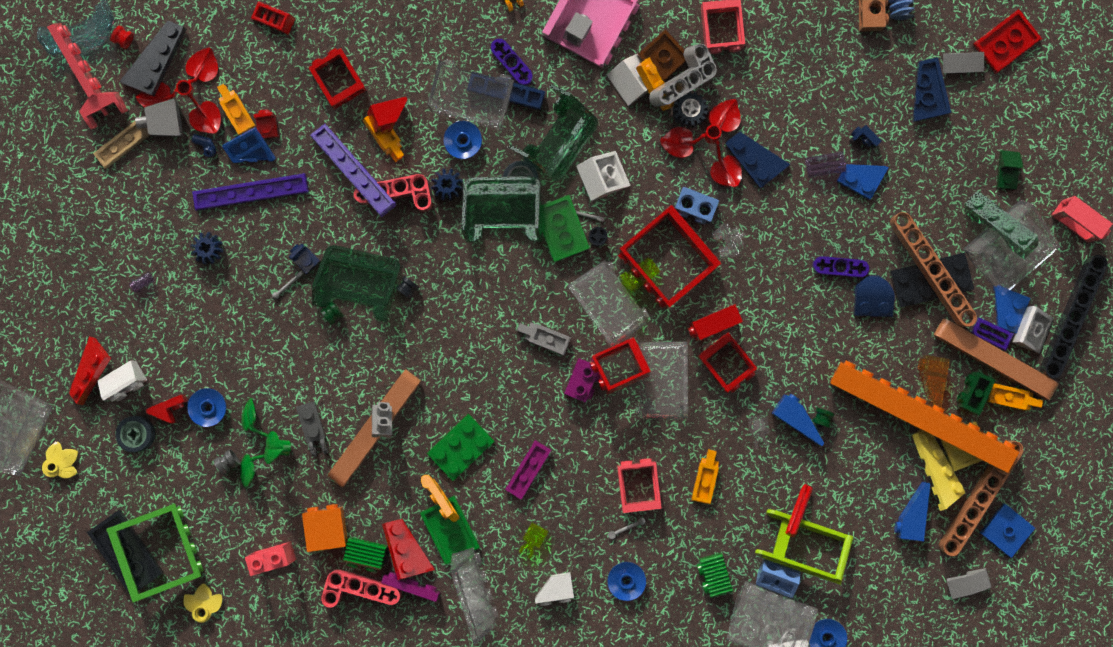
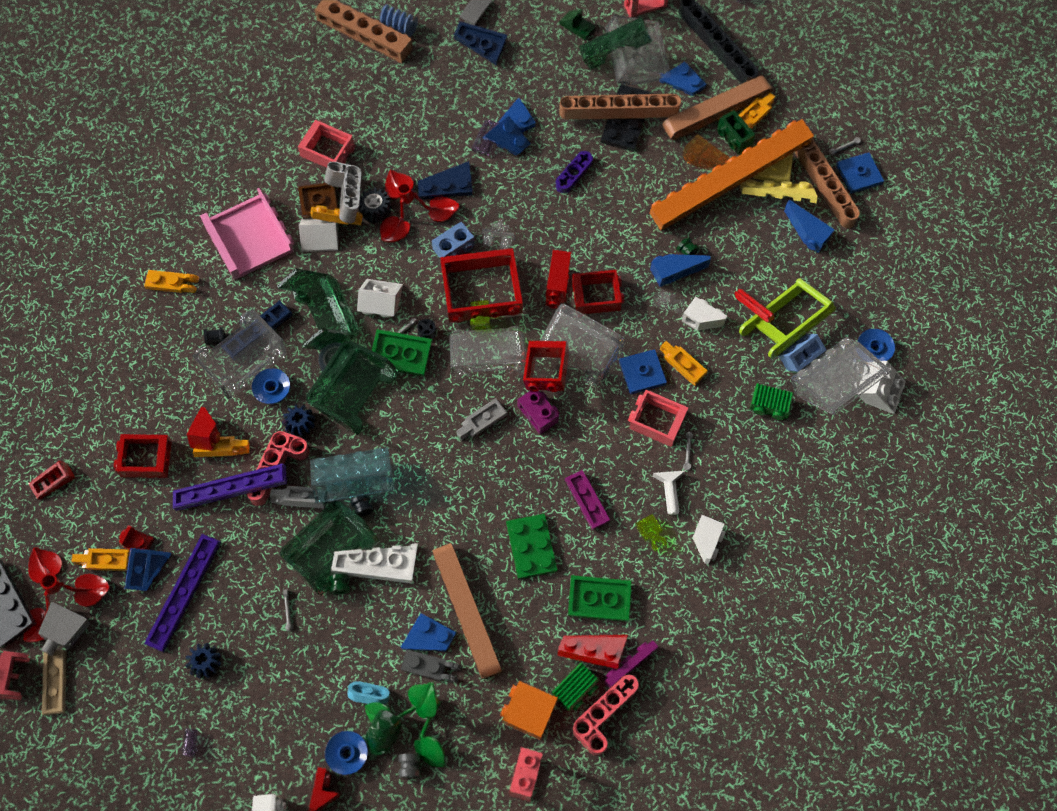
camera: 65 degrees left, 20 degrees down
(206, 143) = (112, 604): dark blue arm -> none
(236, 426) = (382, 732): none -> dark green piece
(262, 394) = (367, 693): none -> medium azure plate
(303, 257) = (274, 580): dark blue bracket -> none
(336, 411) = (428, 635): none -> blue wing
(369, 334) = (383, 564): none -> white wing
(382, 420) = (463, 590): light grey hips -> none
(383, 232) = (295, 497): none -> light grey hinge
(425, 263) = (351, 475): none -> clear light blue brick
(439, 497) = (563, 586): light orange hinge -> none
(473, 593) = (669, 606): clear slope -> none
(477, 59) = (214, 336): none -> black bush
(524, 69) = (230, 309): dark purple beam -> none
(578, 29) = (249, 246): light grey brick -> none
(581, 533) = (669, 479): none -> white piece
(626, 591) = (735, 466): blue dish -> none
(676, 446) = (642, 371): none -> blue plate
(762, 468) = (703, 316): none -> white slope
(836, 184) = (508, 136): none -> blue wing
(869, 138) = (485, 97): dark blue bracket -> none
(874, 297) = (614, 161): dark blue slope -> none
(968, 584) = (888, 220): light grey slope -> none
(1006, 341) = (692, 96): dark purple tile -> none
(1033, 329) = (709, 72): white slope -> none
(1043, 509) = (856, 141): none -> light grey hinge

